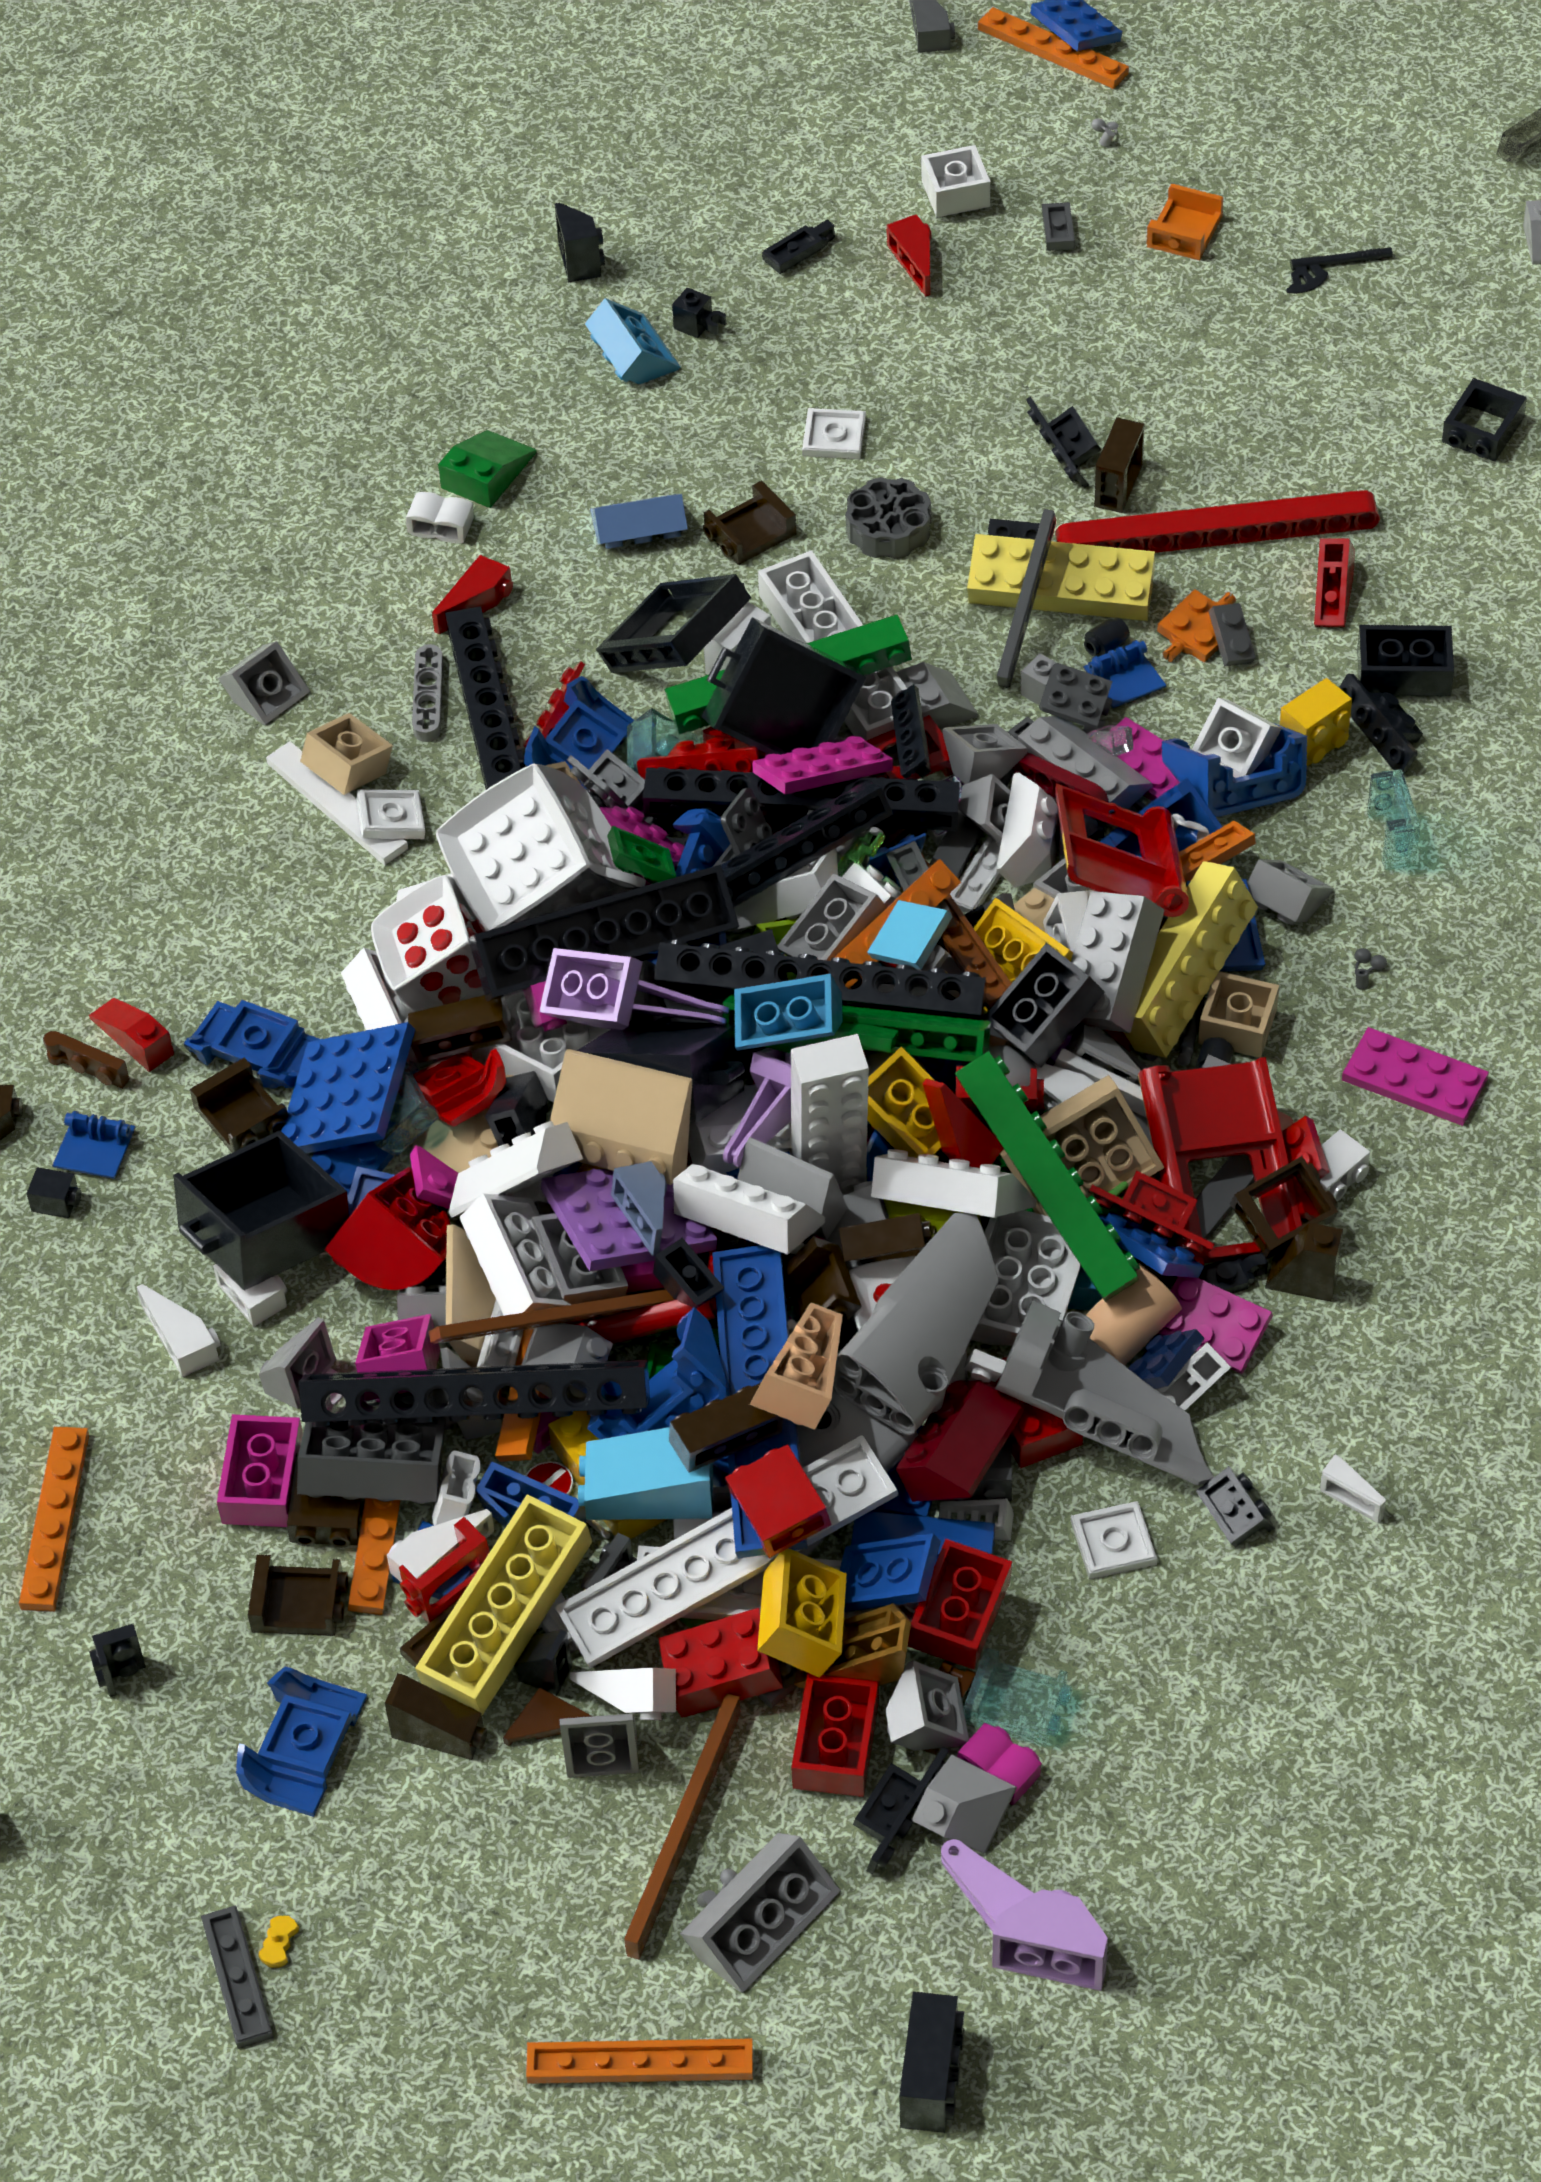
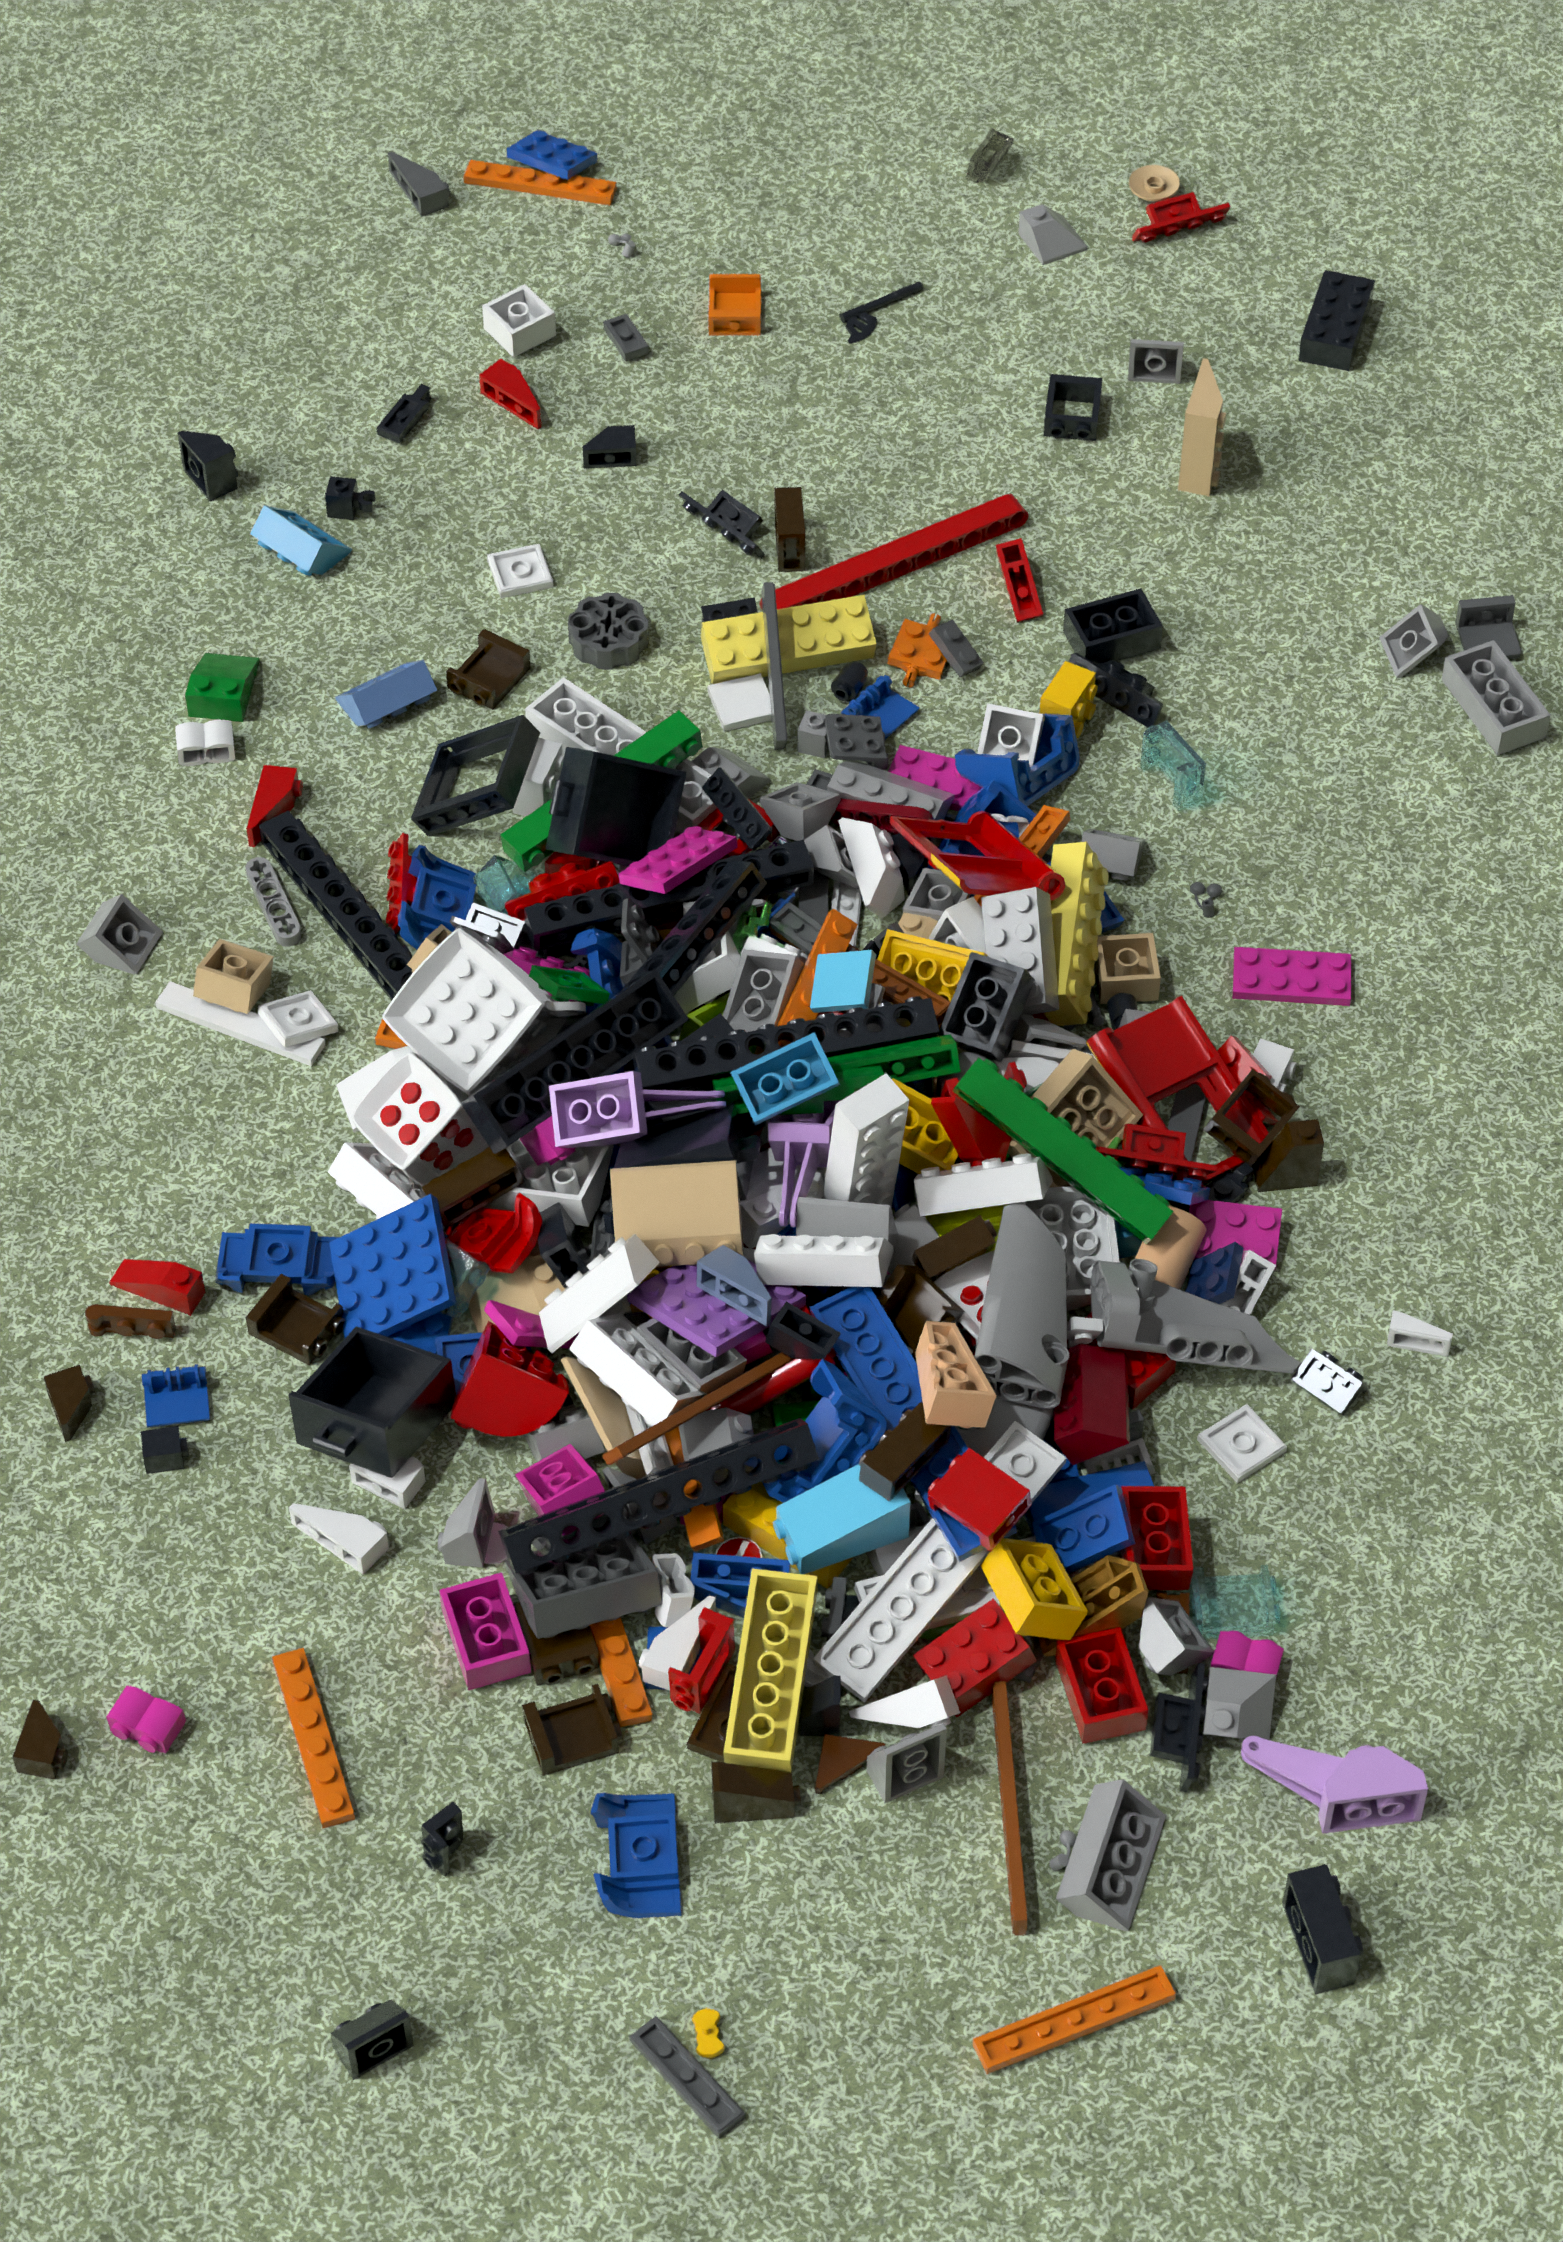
camera: 25 degrees left, 0 degrees up
(984, 627) = (741, 702): none -> white tile
(985, 334) = (611, 448): none -> black slope
(1113, 739) = (903, 765): clear slope -> none

